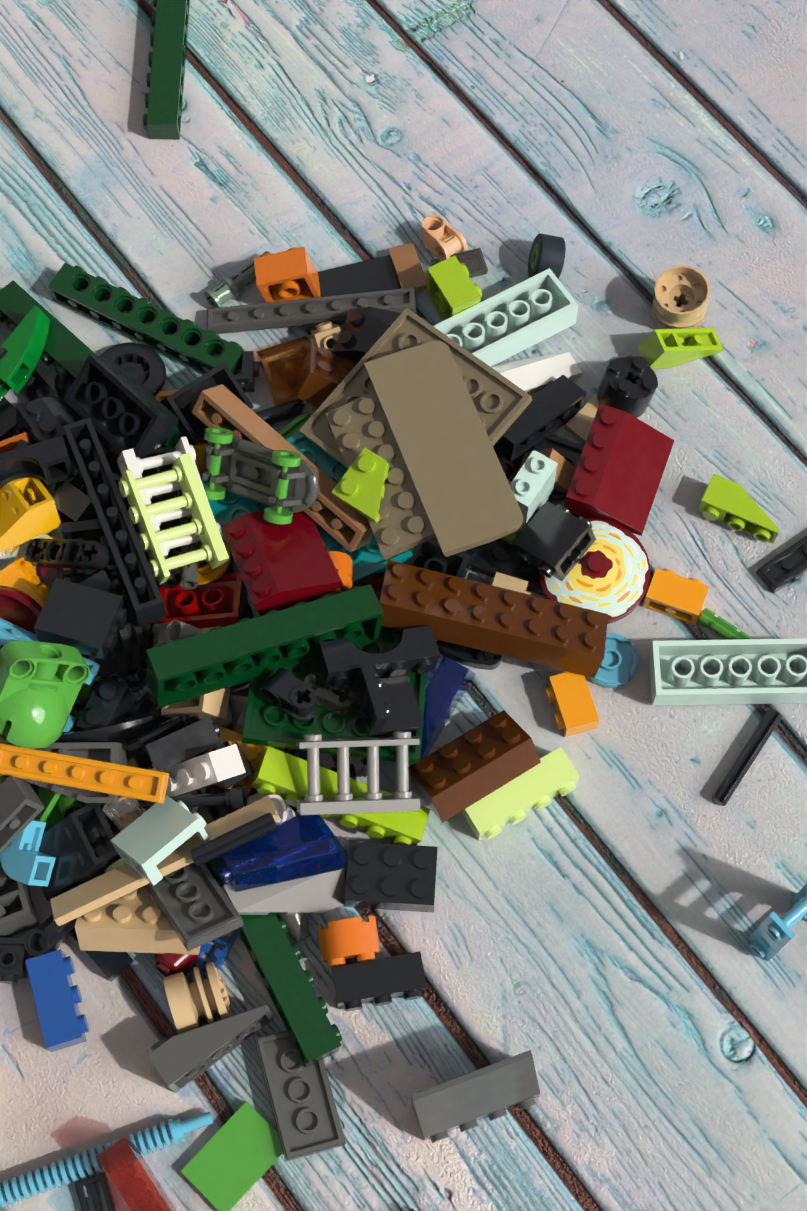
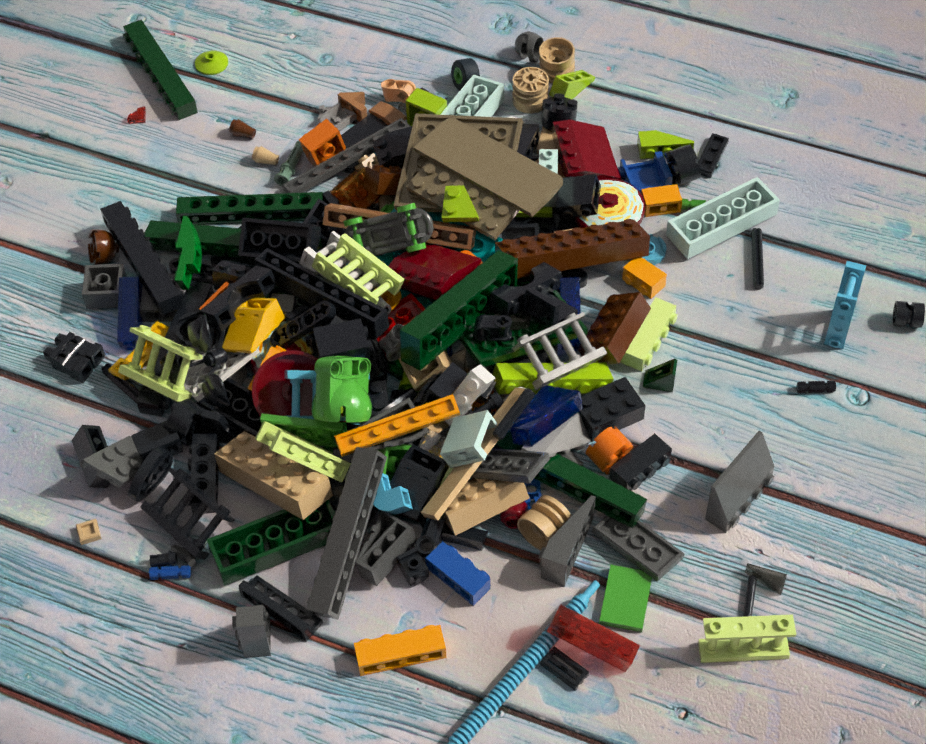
camera: 30 degrees left, 15 degrees down
(103, 108) = (138, 116): none -> clear red tile
(212, 195) = (241, 129): none -> reddish brown cone
(213, 251) = (264, 156): none -> tan cone
(243, 77) = (211, 62): none -> lime dish
(339, 238) = (337, 115): none -> light grey slope
(374, 228) = (354, 102): none -> medium nougat slope
(492, 867) = (661, 376): none -> dark green slope
(614, 327) = (529, 89): none -> tan wheel
(662, 252) = (528, 45): none -> dark grey helmet
(682, 544) = (647, 173): none -> blue panel
(688, 1000) = (816, 386): none -> black axle
(737, 559) = (683, 164): none -> black brick

